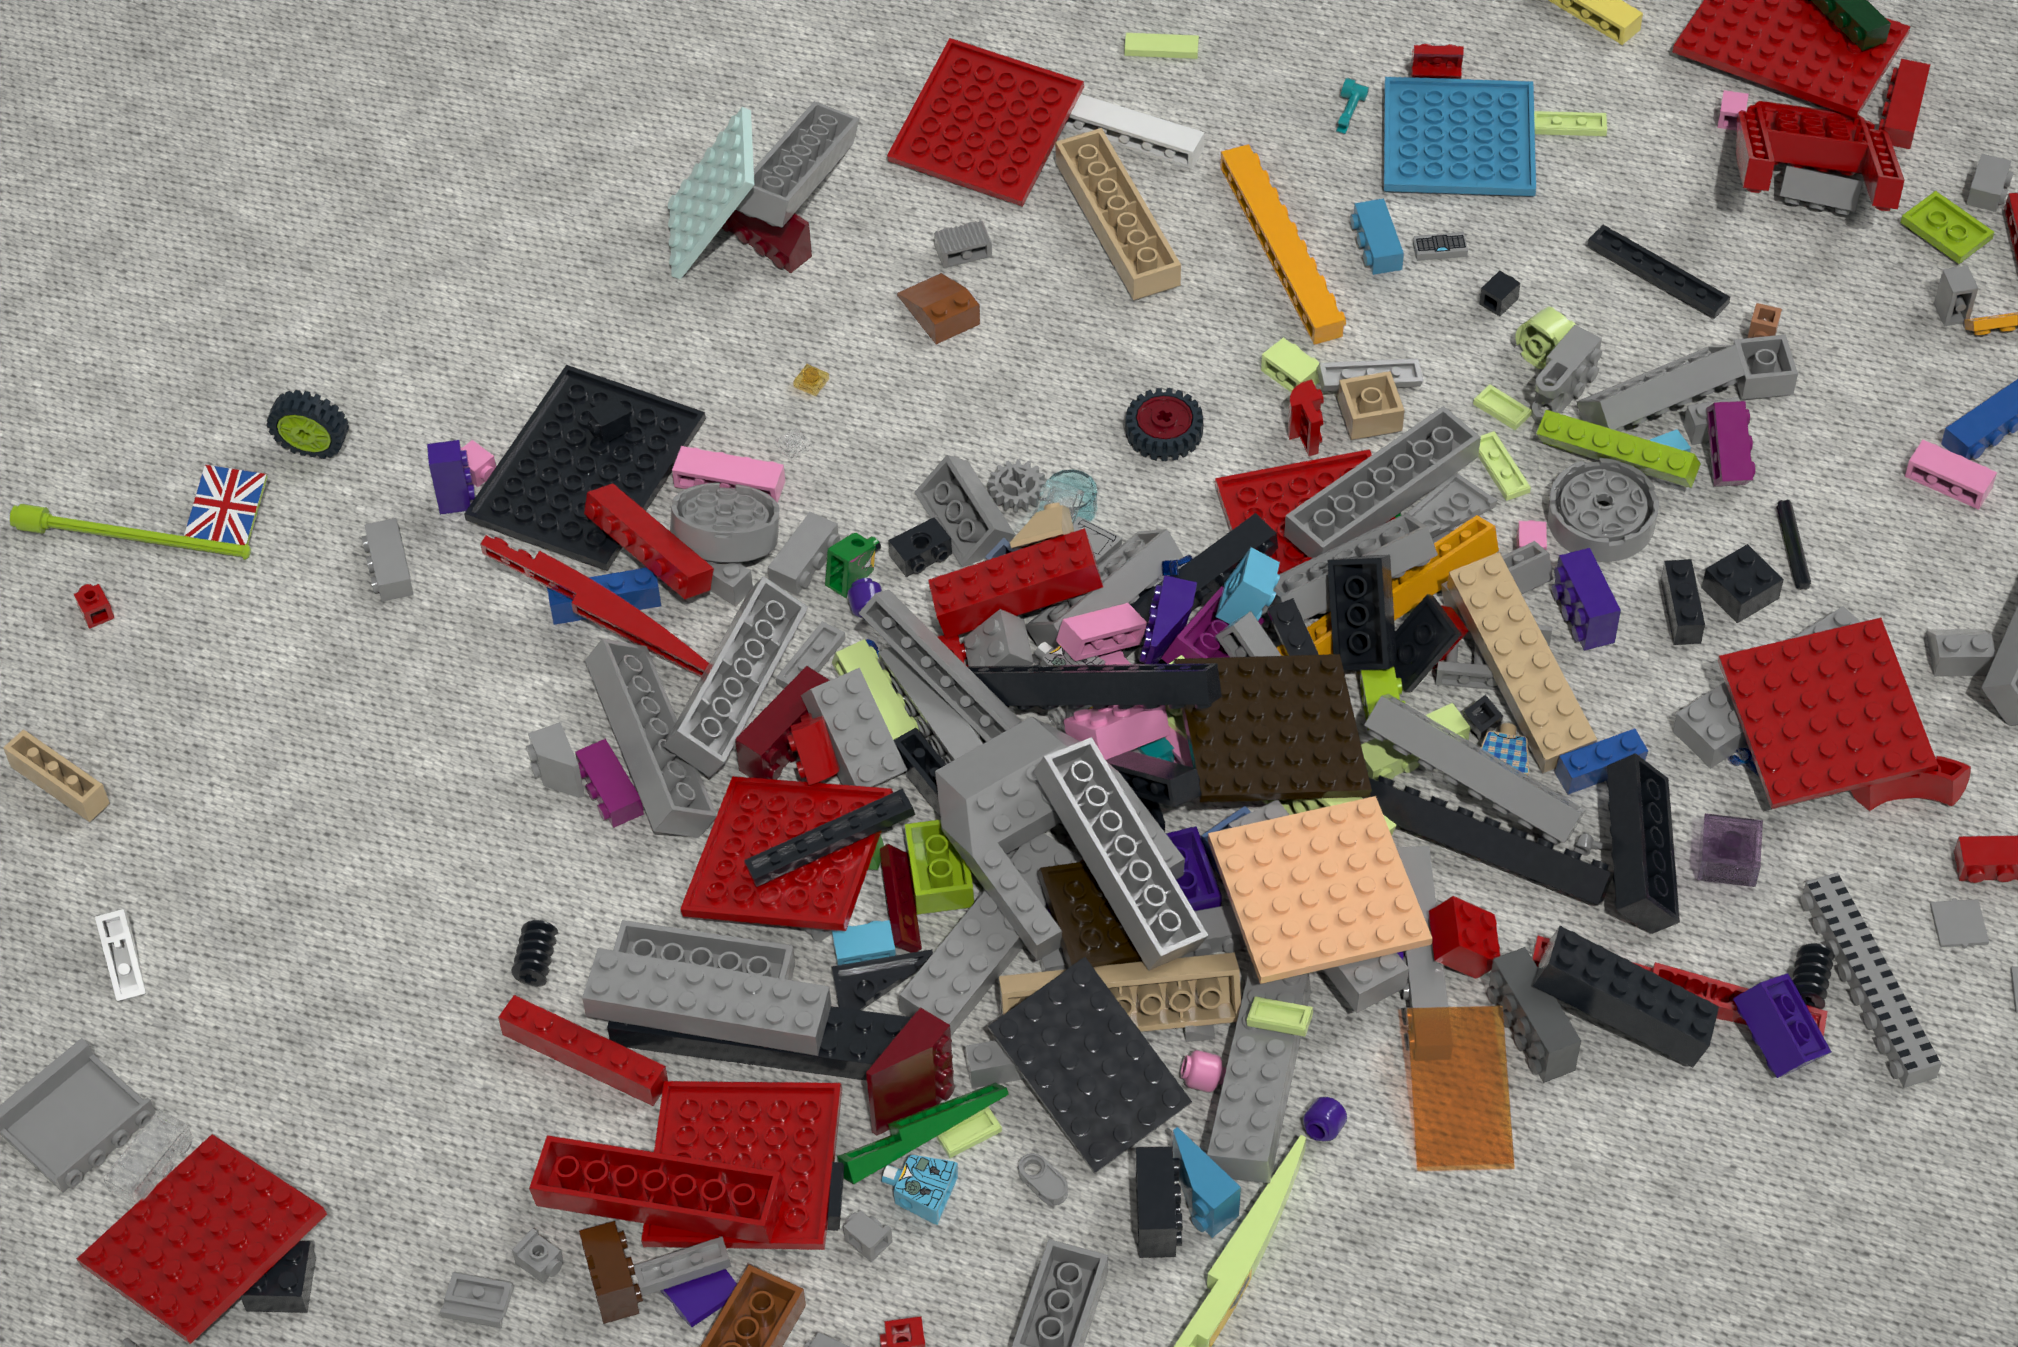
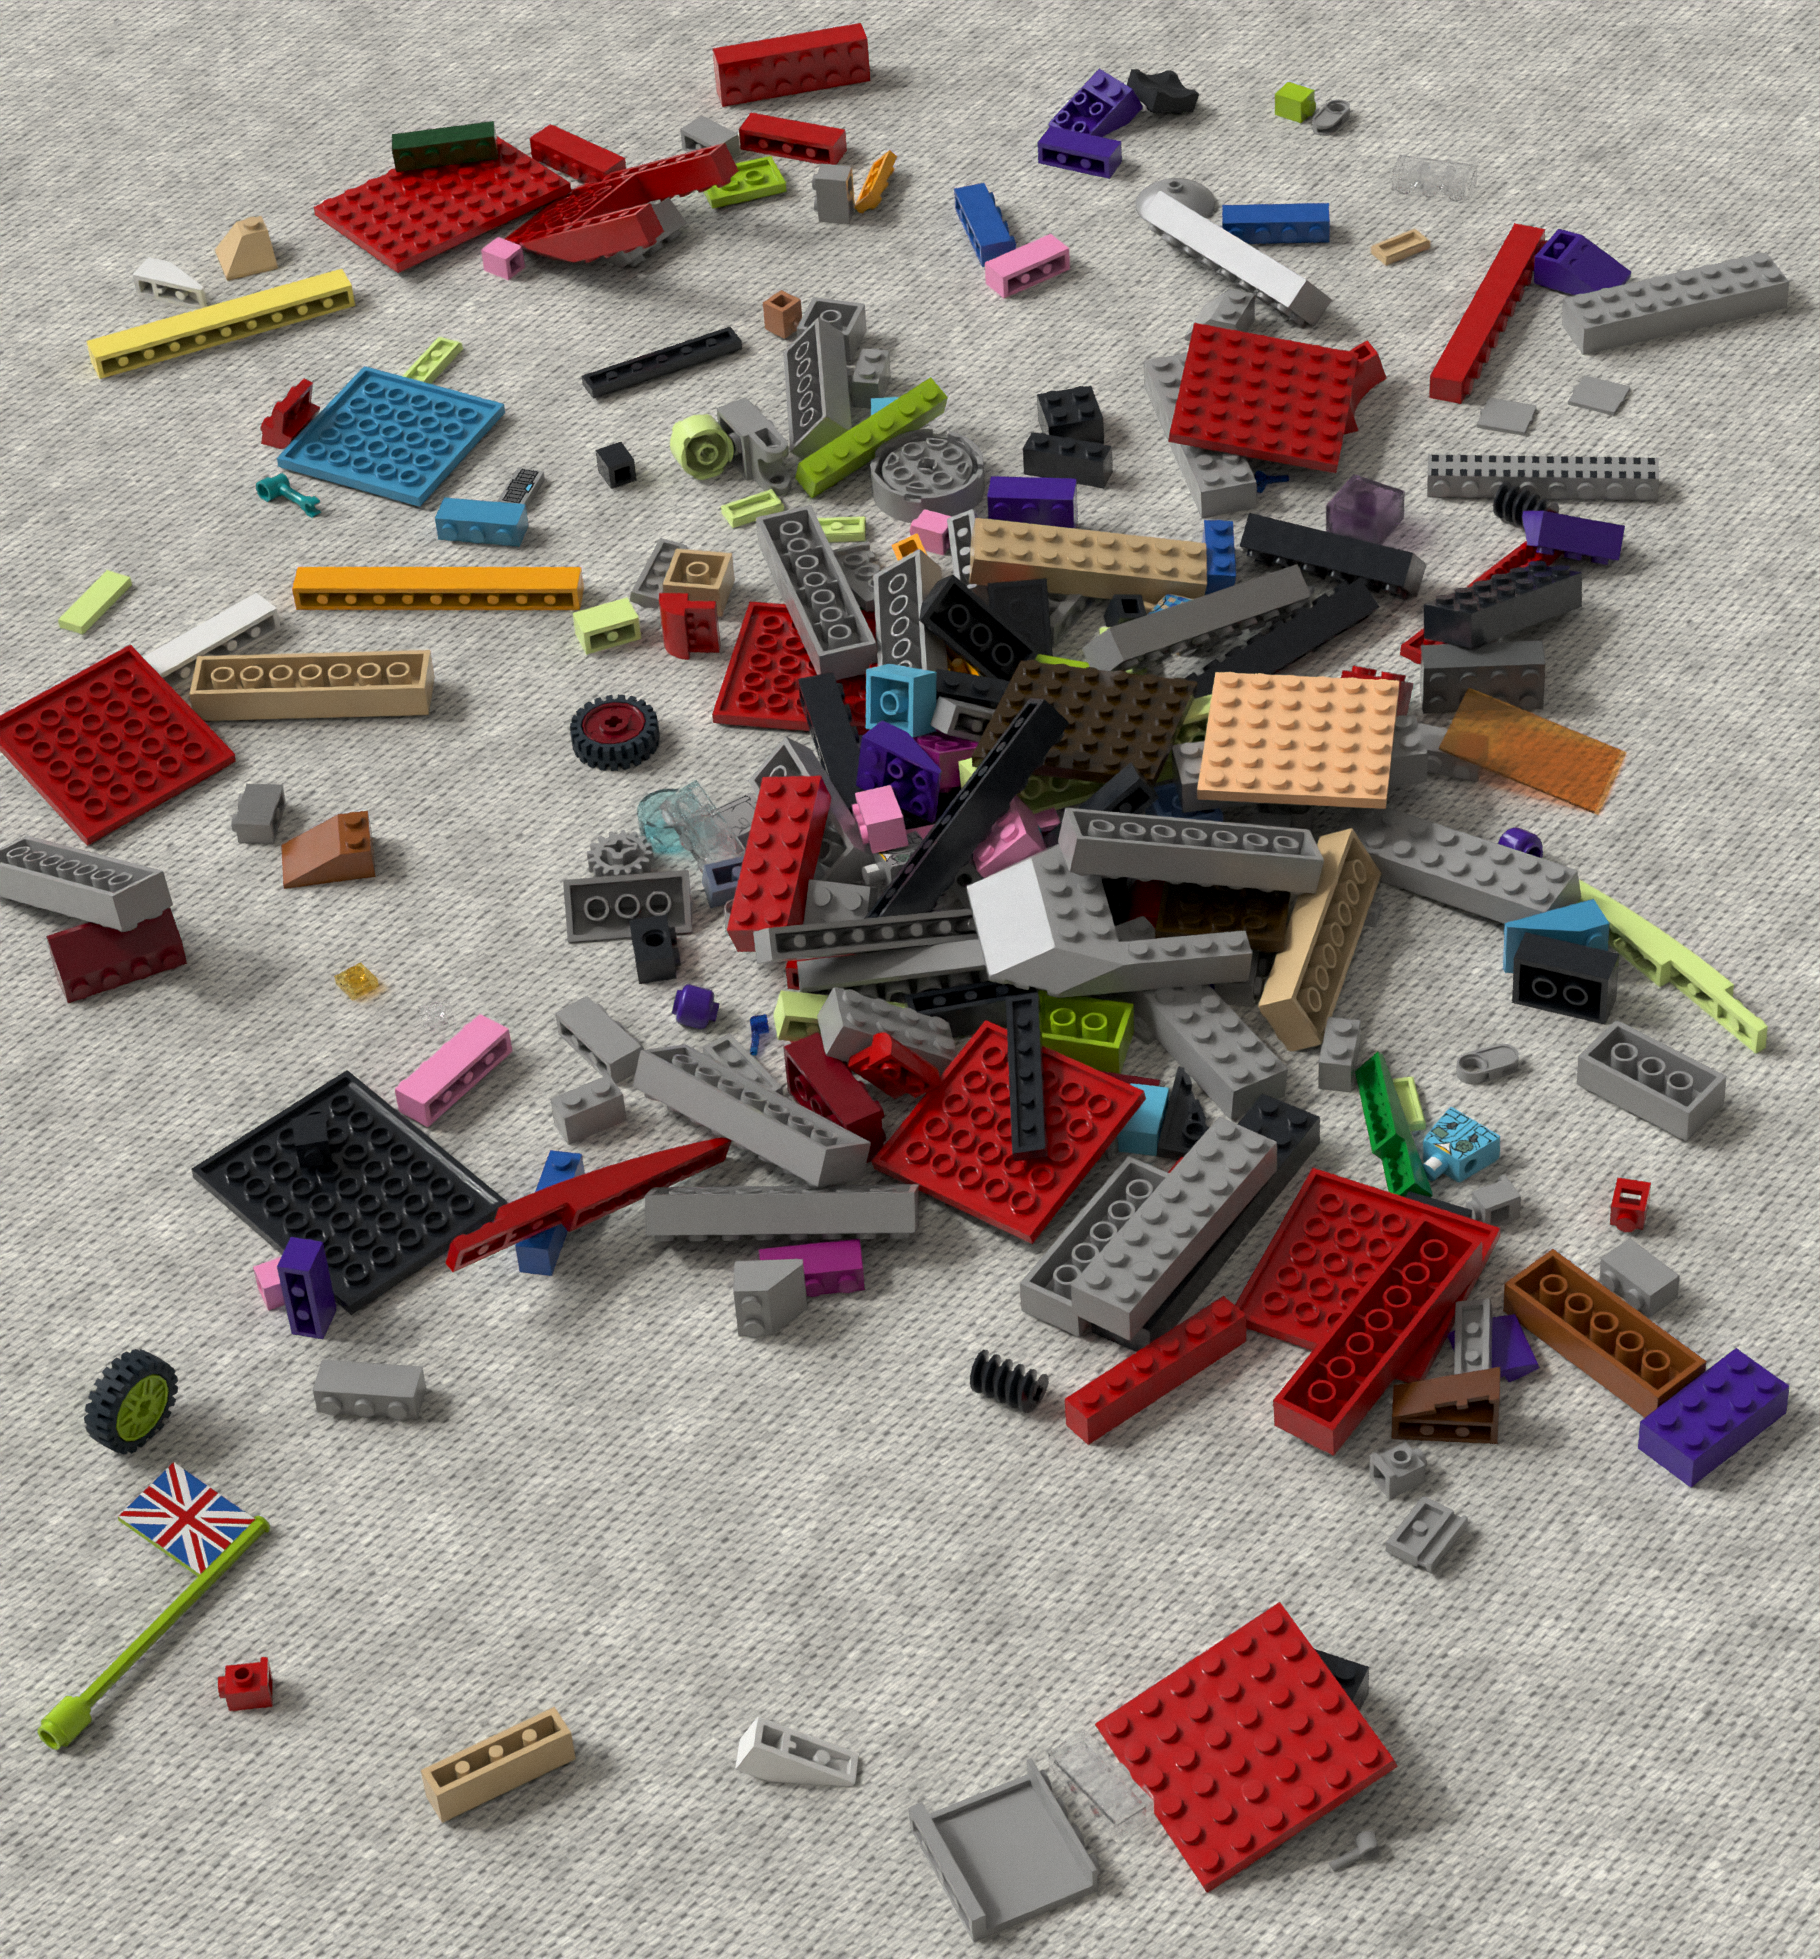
camera: 65 degrees left, 10 degrees down
(649, 541) = (518, 1140): red brick -> none
(711, 193) = (74, 951): light aqua plate -> none
(726, 522) = (531, 1076): light grey brick -> none
(850, 561) = (644, 992): green torso -> none
(911, 1072) = (1342, 1089): dark red slope -> none
(1043, 526) = (726, 821): tan slope -> none
(1089, 1065) = (1392, 973): black plate -> none
(1170, 567) = (823, 755): clear blue hand -> none
(1202, 1071) = (1423, 915): bright pink head -> none
(1280, 1016) = (1414, 822): yellowish green tile -> none
(1730, 443) = (910, 365): magenta brick -> none
(1793, 544) = (1033, 379): black axle -> none

